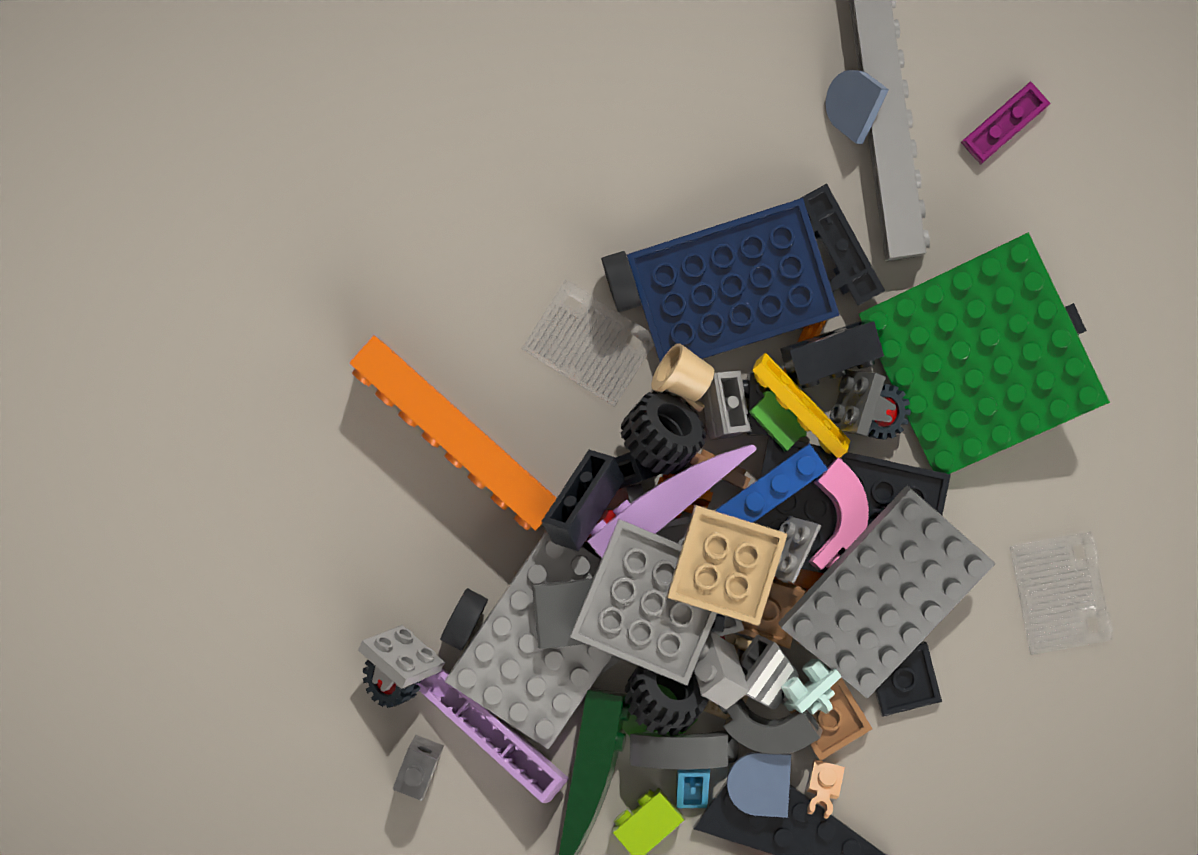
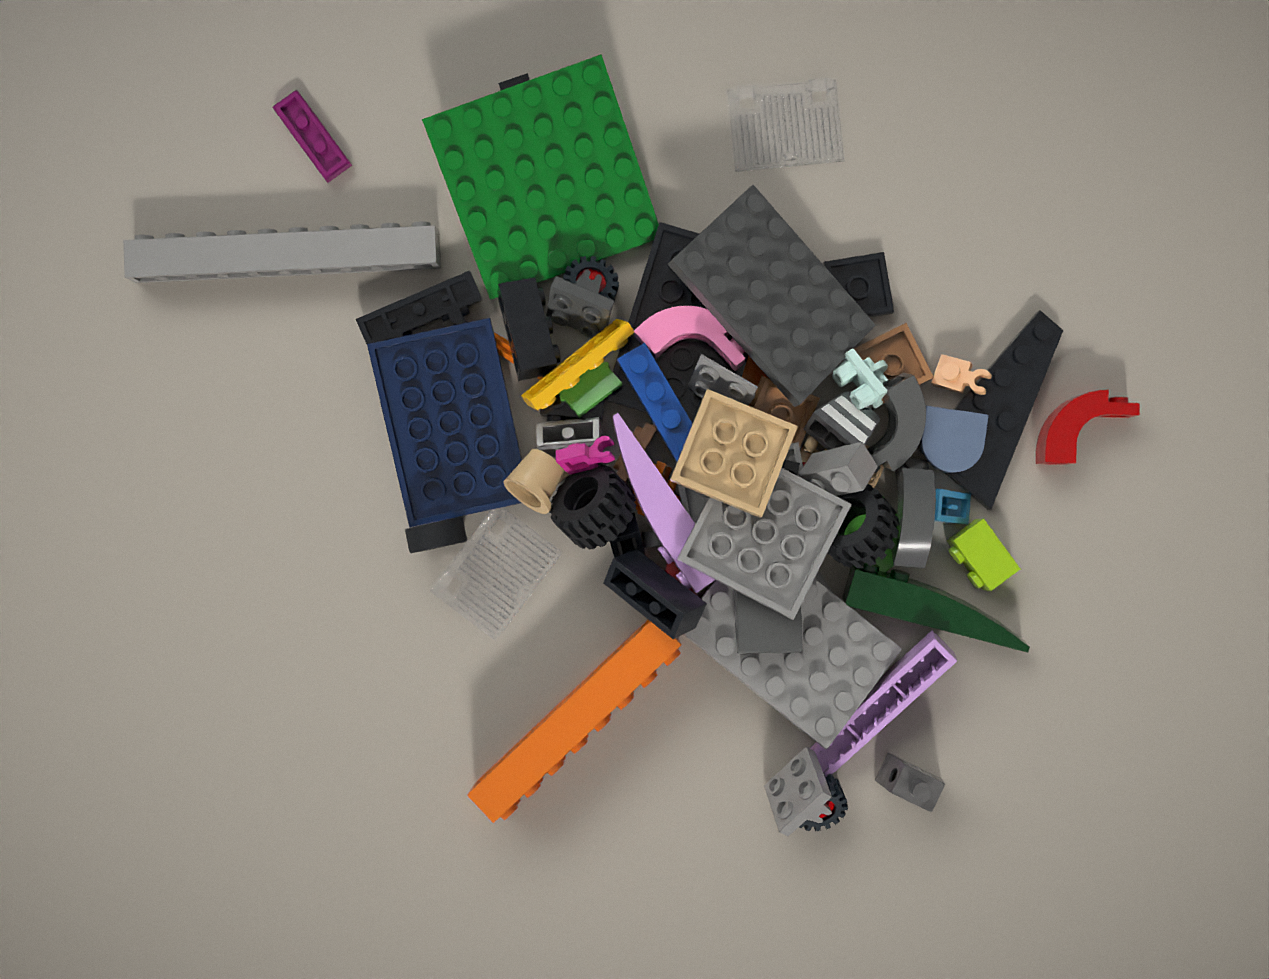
camera: 90 degrees left, 0 degrees up
(464, 619) = (764, 723): black tyre -> none
(709, 418) = (581, 458): none -> dark pink plate
(854, 103) = (276, 283): sand blue tile -> none

